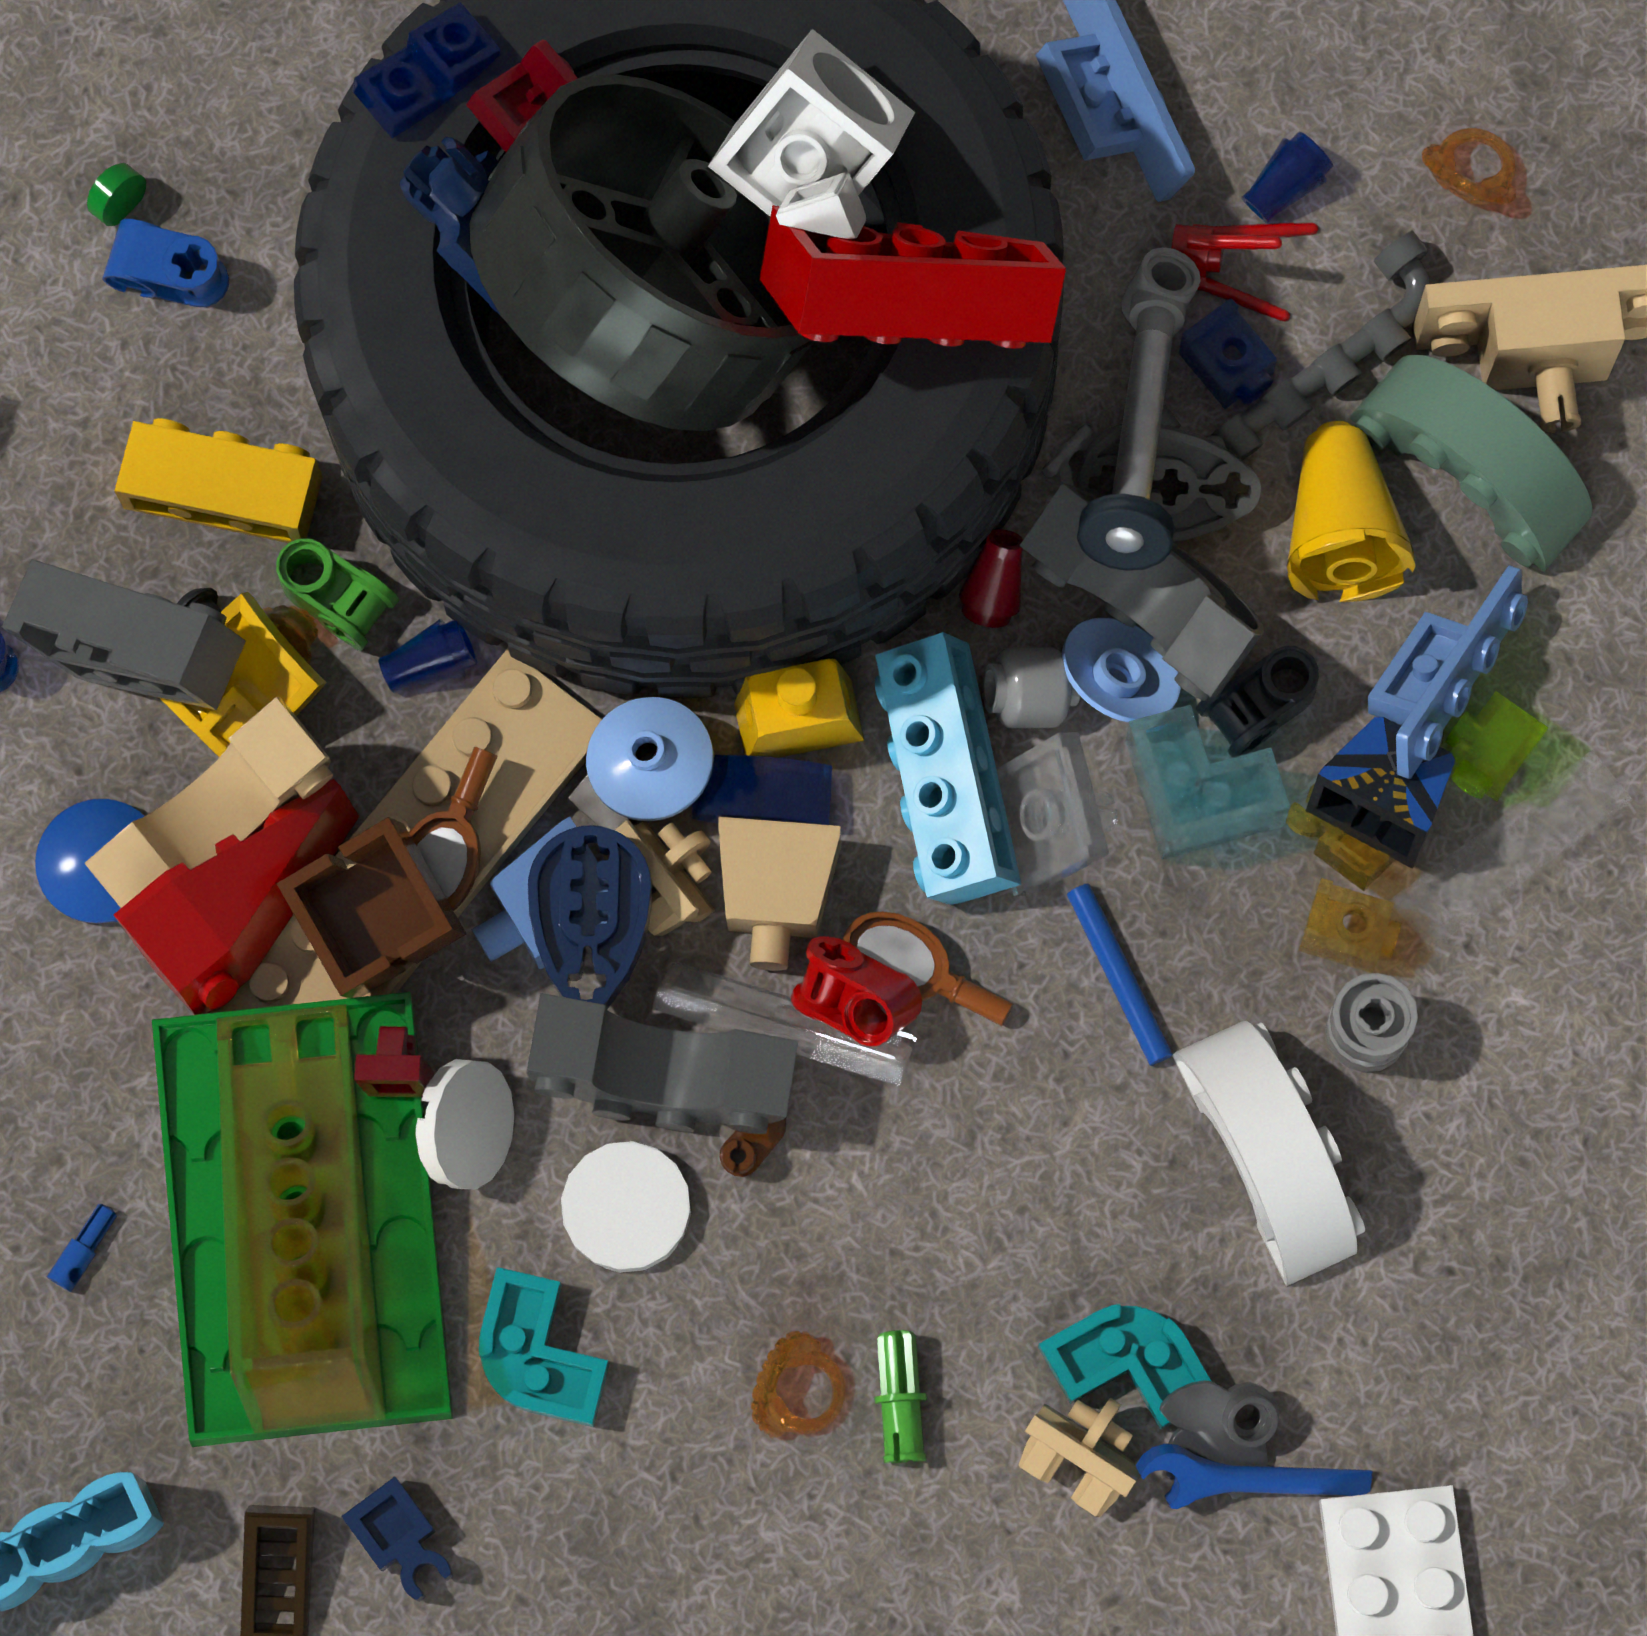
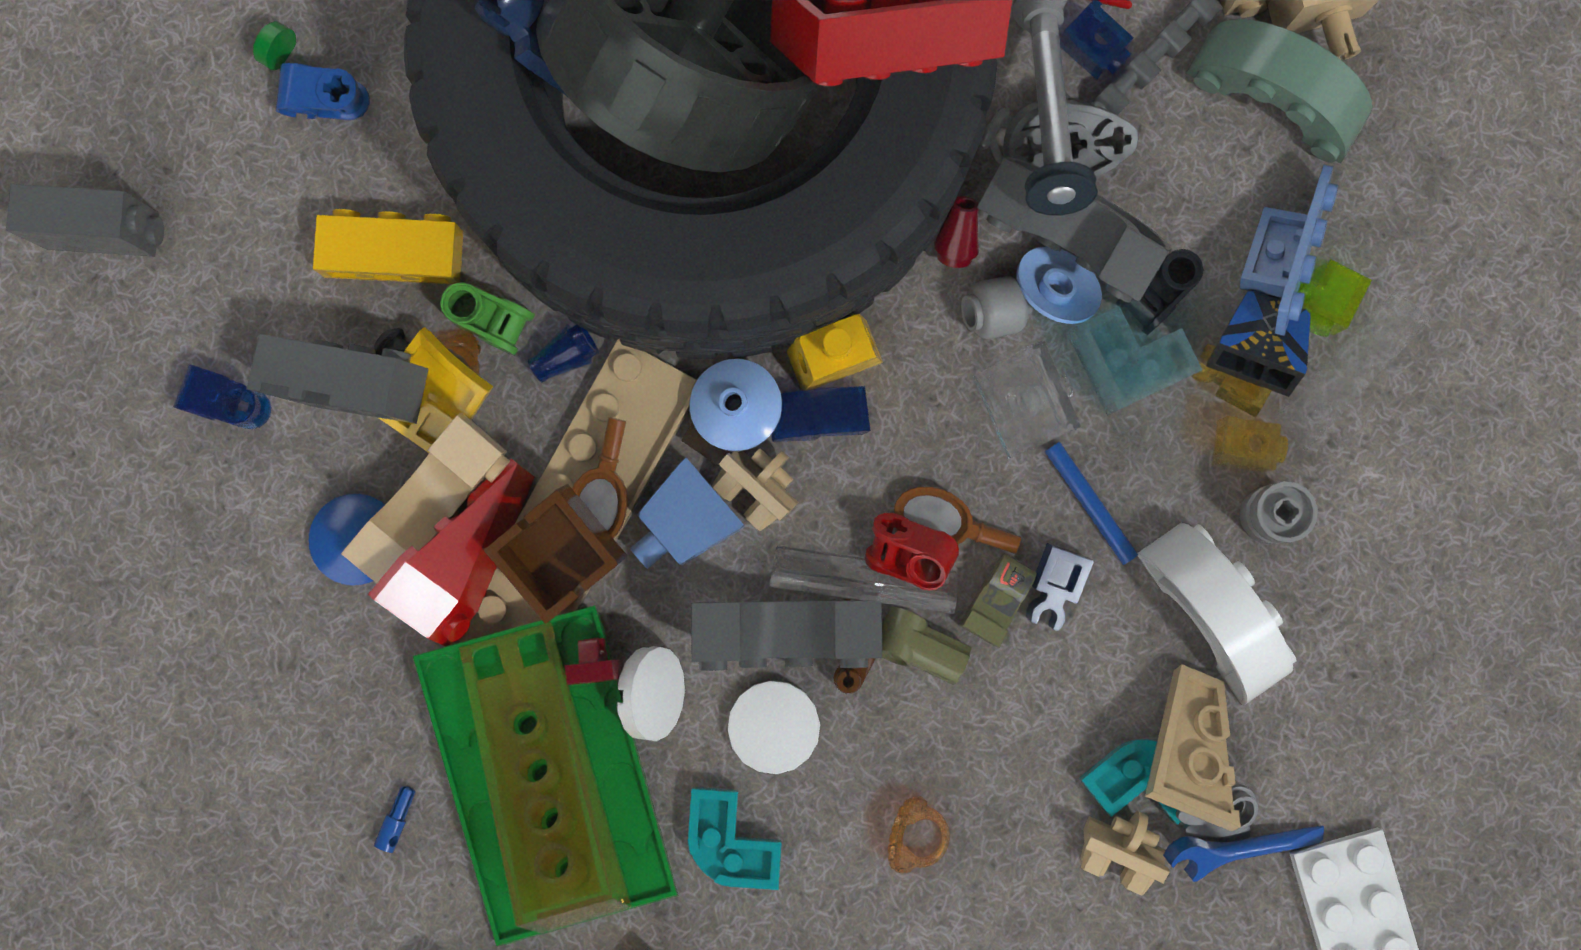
camera: 15 degrees left, 10 degrees up
(625, 904) = (686, 528): dark blue piece -> none
(776, 882) = (840, 479): tan torso -> none
(832, 1116) = (911, 642): none -> olive piece
(900, 1397) = (990, 832): bright green axle -> none
(946, 770) = (947, 377): medium azure brick -> none
(965, 1083) = (998, 600): none -> olive leg
(1057, 1065) = (1059, 578): none -> plate
(1198, 1324) = (1191, 751): none -> tan wing
(1345, 520) = (1201, 147): yellow cone -> none

